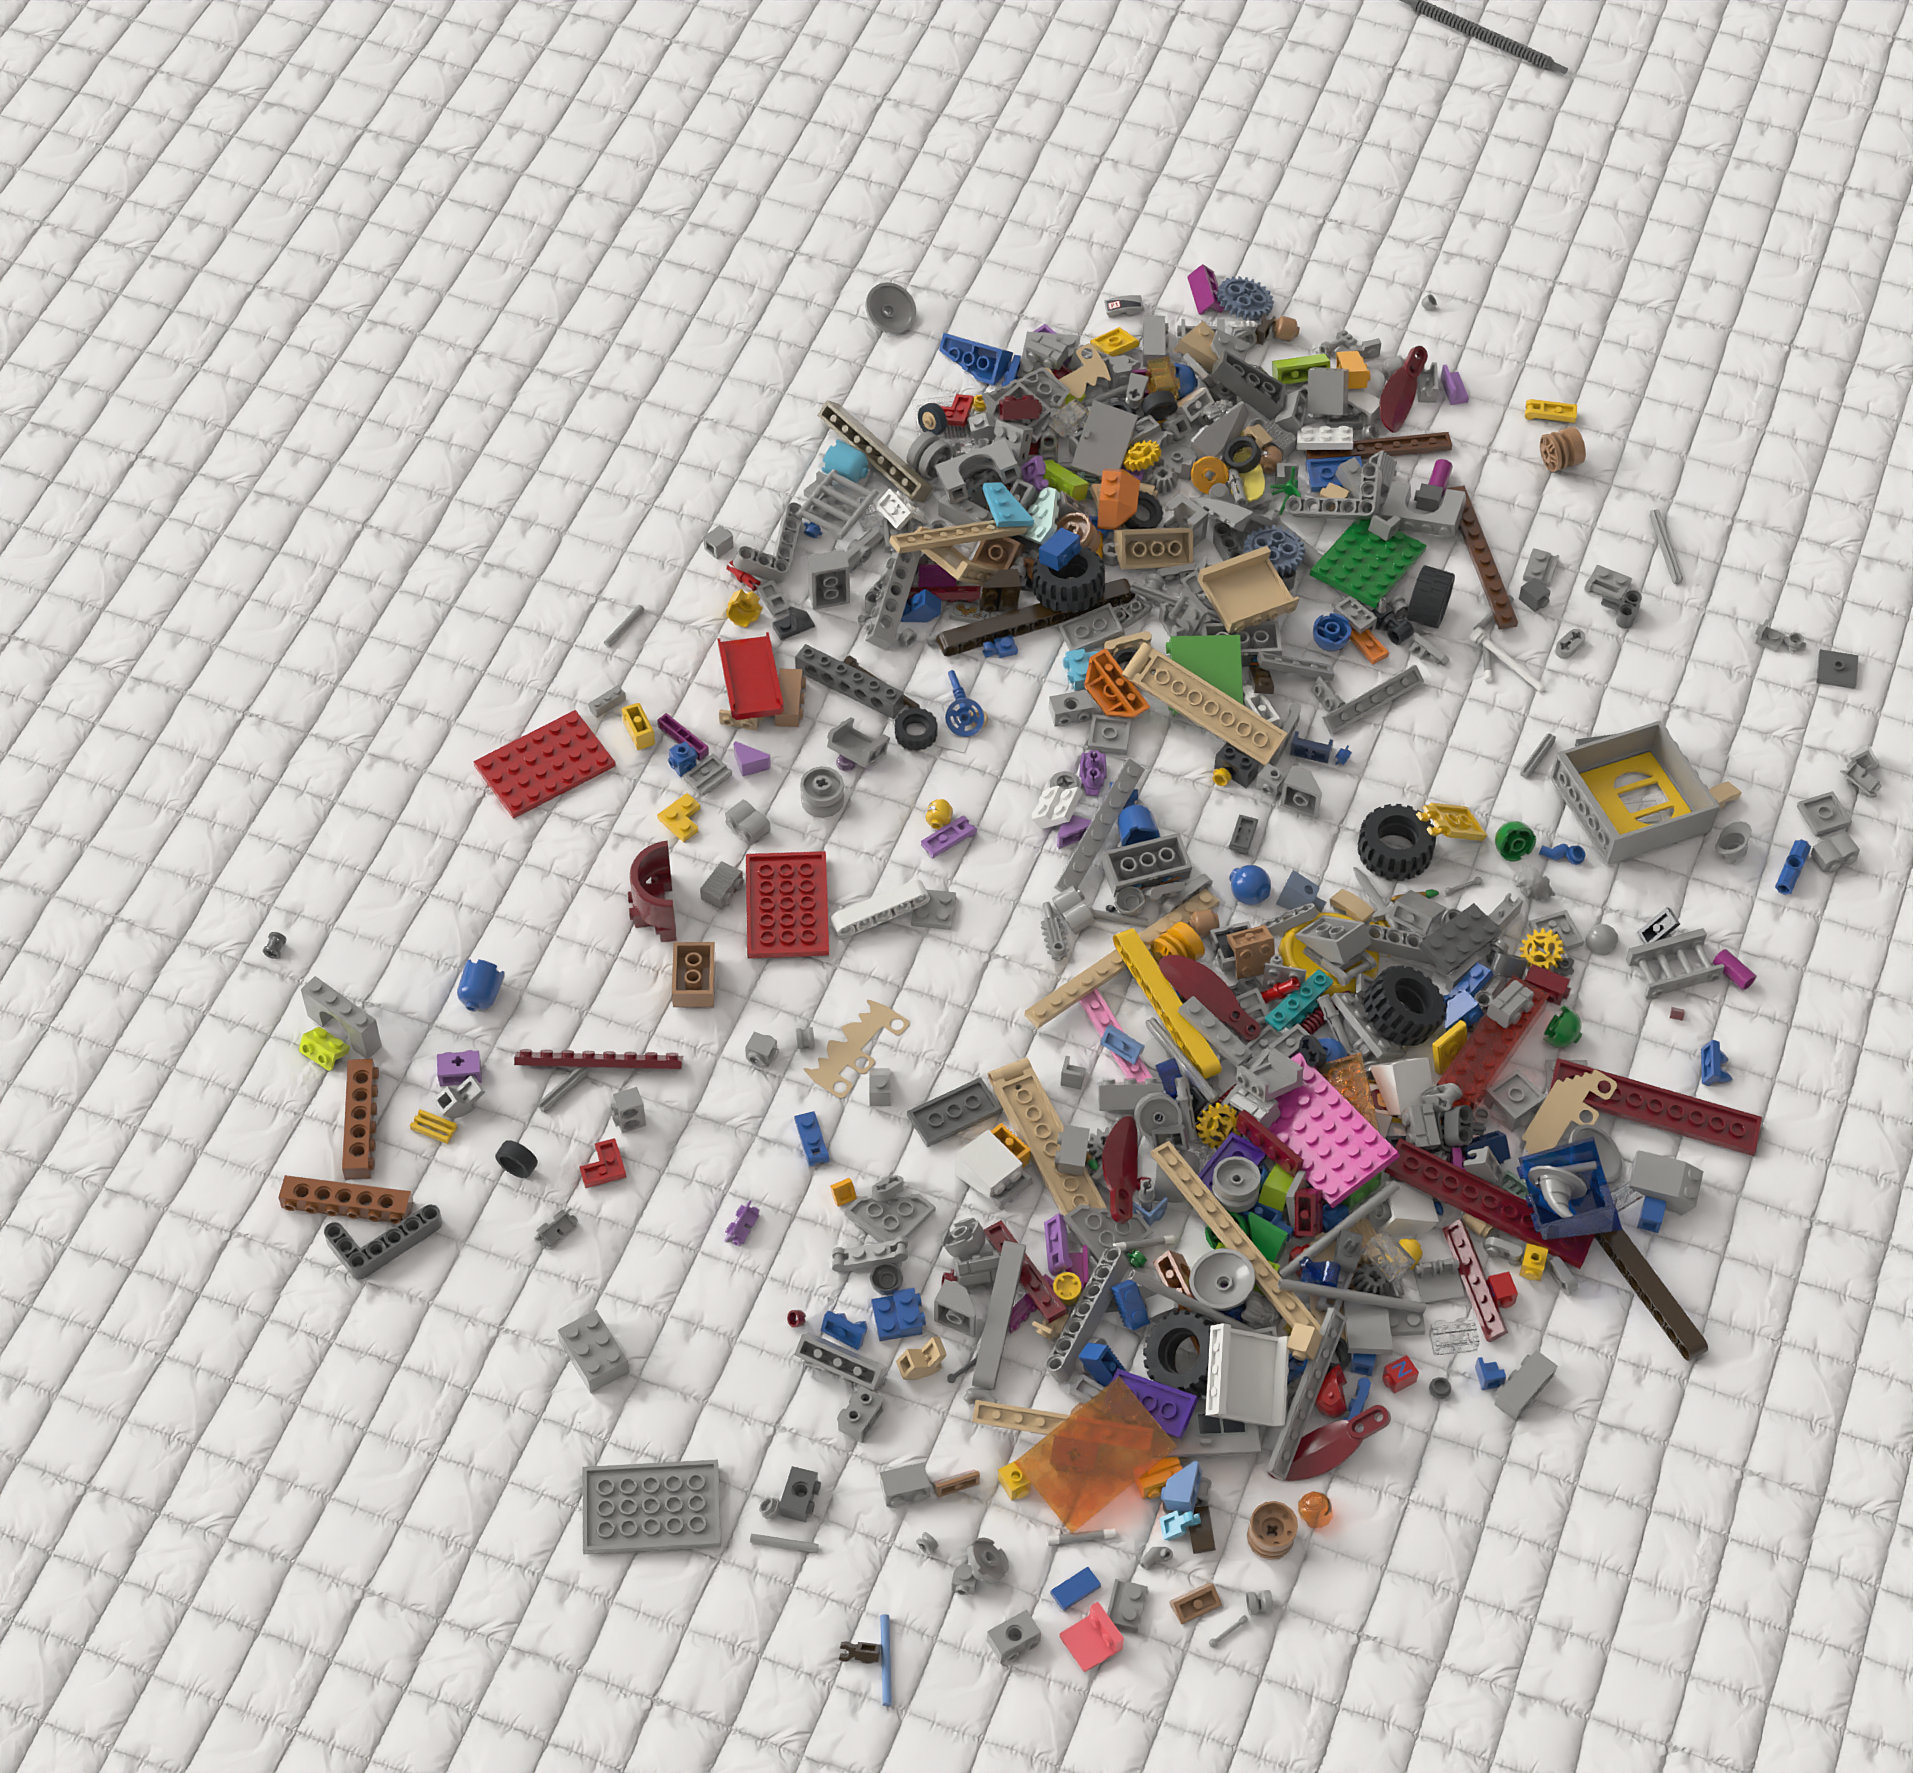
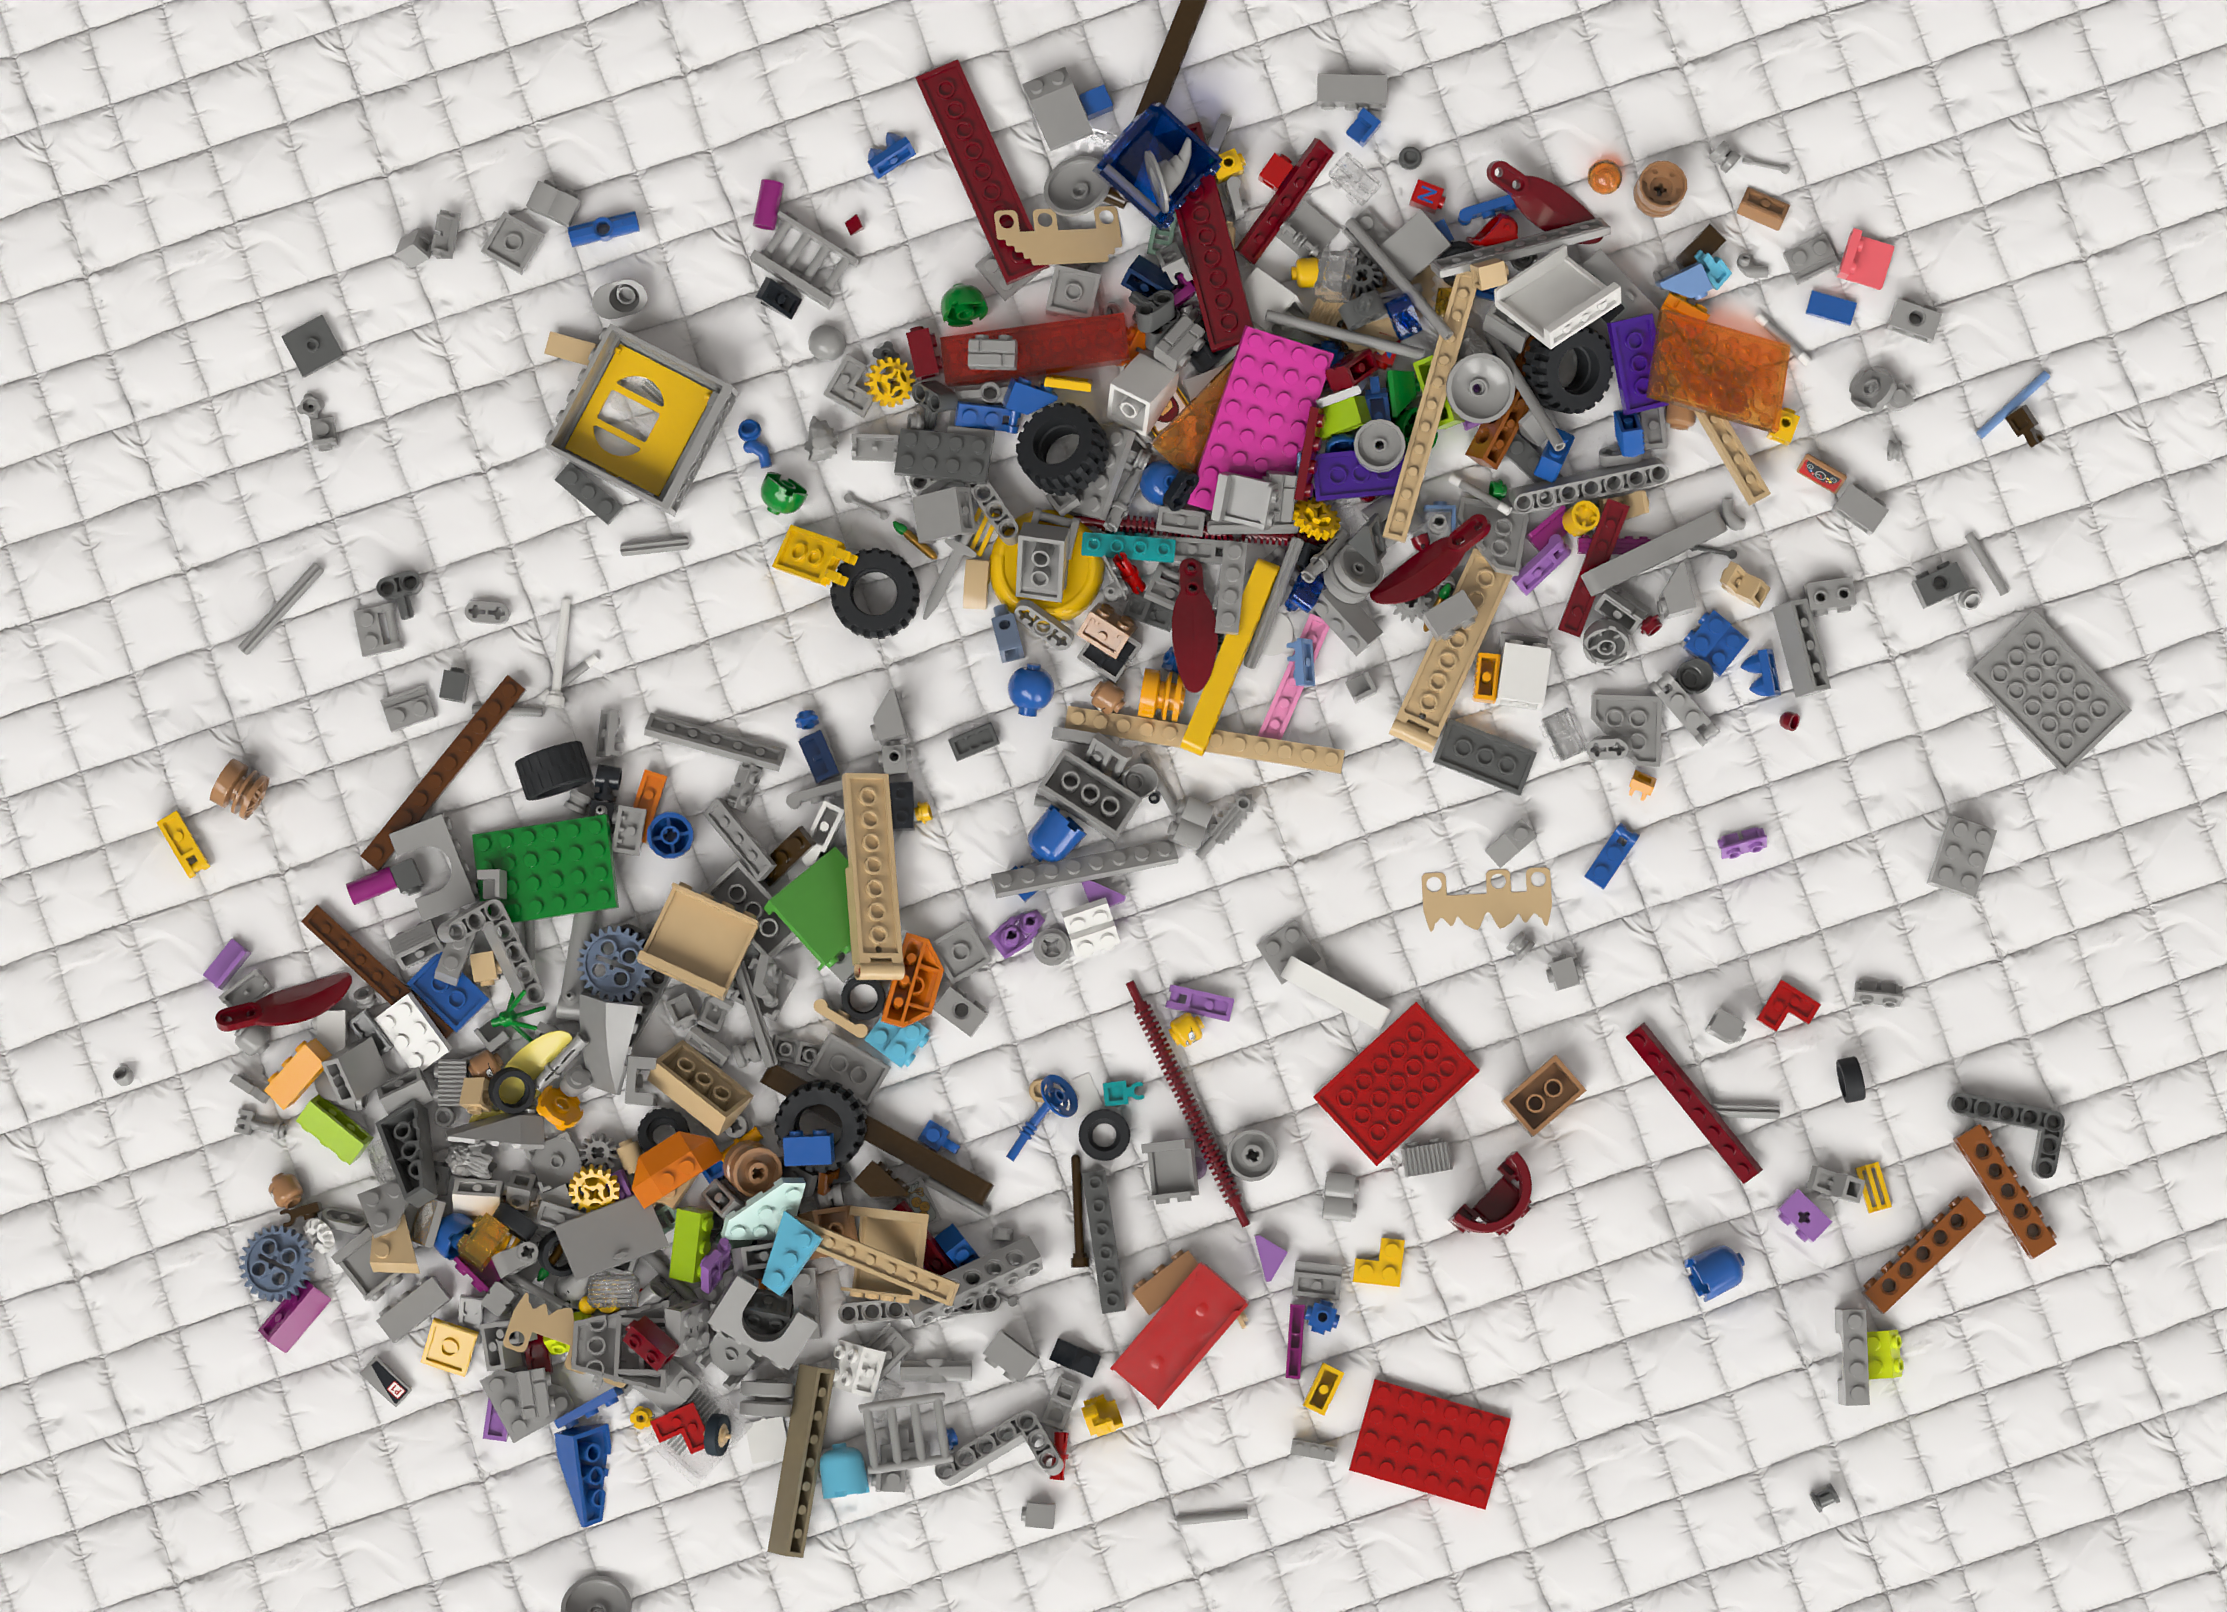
camera: 125 degrees left, 30 degrees up
(854, 778) = (1142, 1007): none -> dark red hose
(923, 1168) = (1563, 735): none -> clear brick
(933, 754) = (1117, 1093): none -> teal plate
(1323, 529) = (530, 942): none -> light grey bar
(1442, 1096) = (1140, 346): light grey piece -> none

